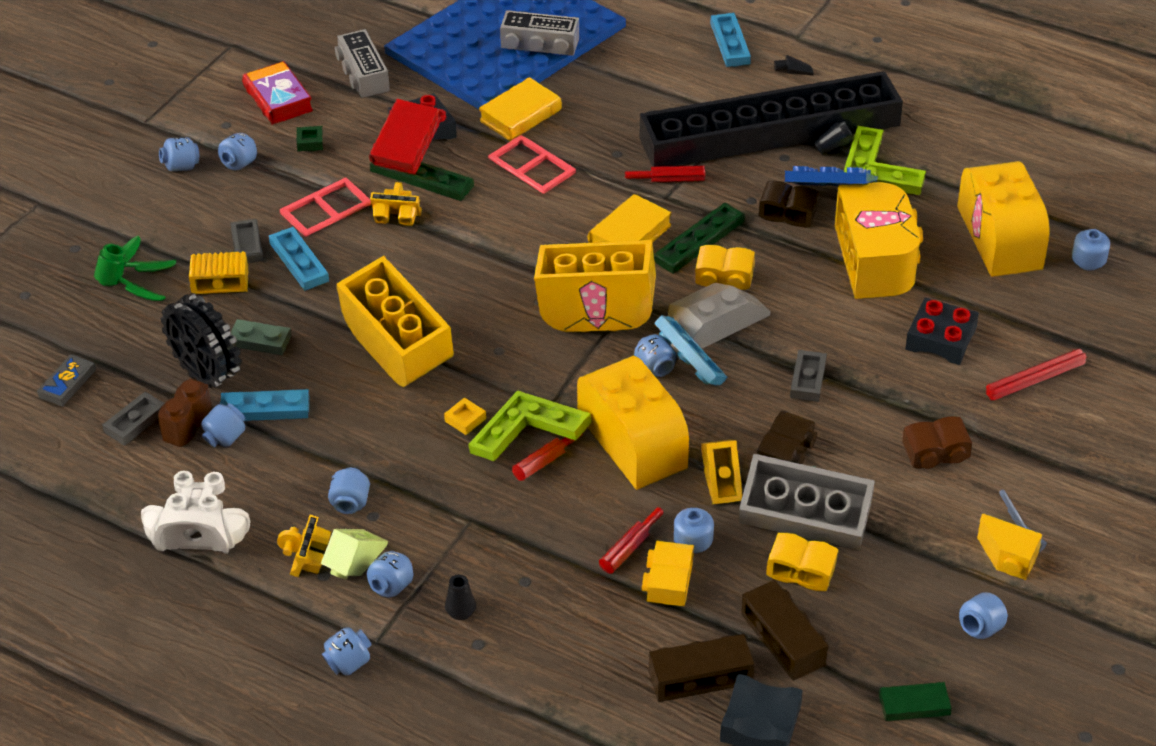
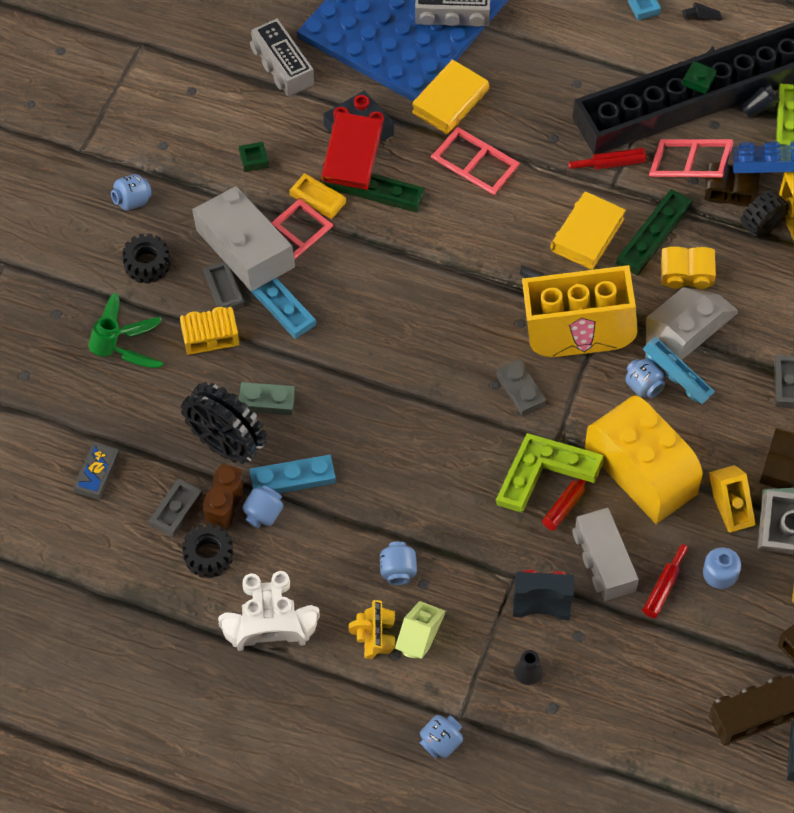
camera: 10 degrees left, 15 degrees up
(152, 446) = (203, 536): none -> black tyre
(187, 206) = (146, 245): none -> black tyre
(237, 151) = (187, 182): medium blue head -> none
(276, 197) = (244, 238): none -> light grey brick
(277, 92) = (206, 102): piece -> none
(364, 176) = (318, 196): none -> yellow tile
(390, 574) = (460, 649): medium blue head -> none
(394, 322) = (401, 379): yellow brick -> none
(395, 202) = (370, 229): yellow hips -> none
(465, 416) = (484, 466): yellow plate -> none
(491, 529) = (543, 594): none -> black brick
(524, 354) = (521, 387): none -> dark grey plate
(571, 506) = (605, 554): none -> light grey brick
(669, 573) = (708, 615): yellow brick -> none
(745, 186) = (694, 144): none -> coral window
(771, 105) = (699, 77): none -> dark green plate
(814, 227) = (764, 213): none -> black tyre

